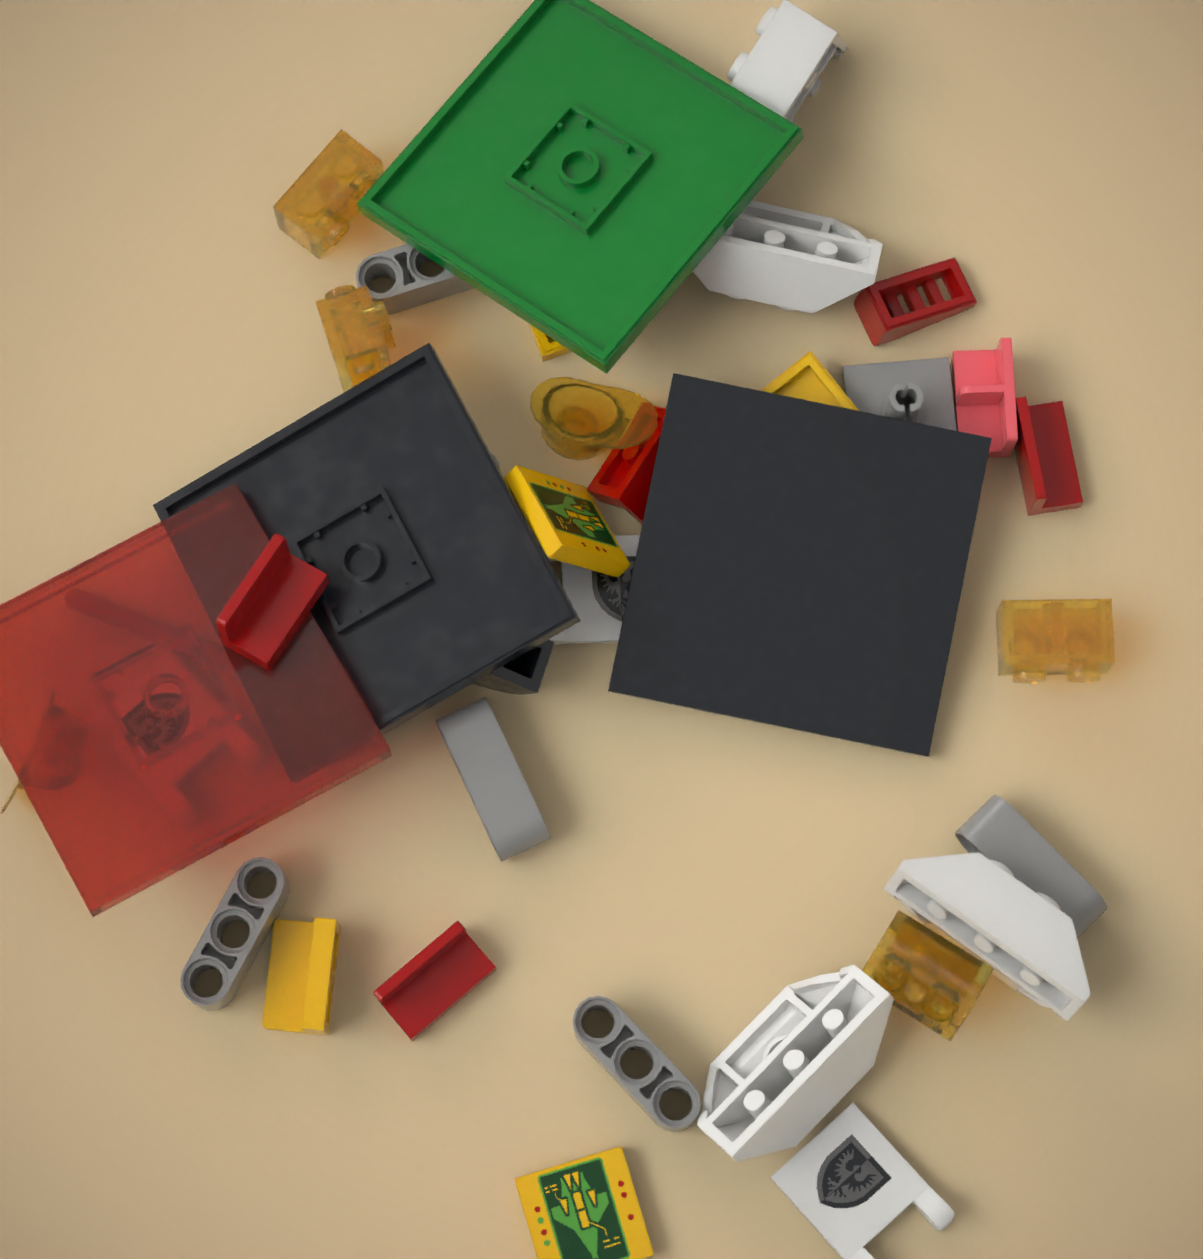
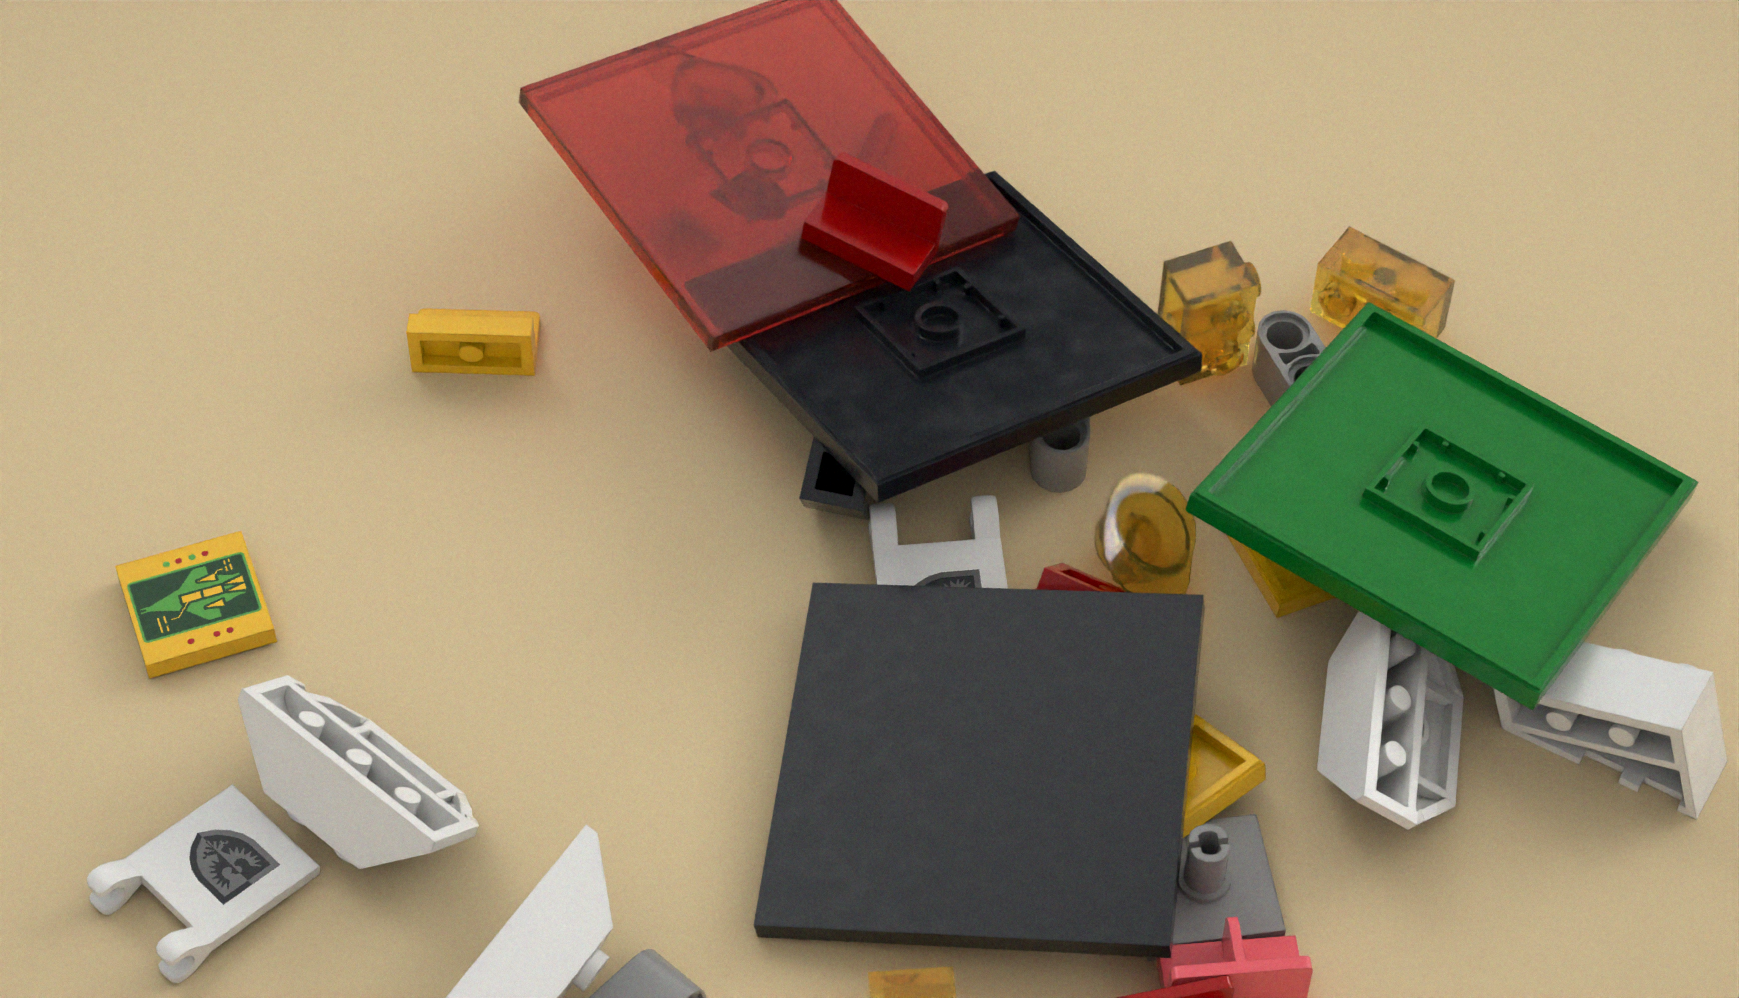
camera: 85 degrees right, 25 degrees down
(235, 906) = (519, 269): light grey beam -> none
(434, 981) = (471, 445): red panel -> none
(493, 779) = (702, 486): light grey beam -> none
(566, 521) = (1007, 511): yellow tile -> none
(628, 1037) = (397, 608): light grey beam -> none
(884, 315) = (1357, 845): red slope -> none
(927, 975) = (462, 908): clear yellow brick -> none

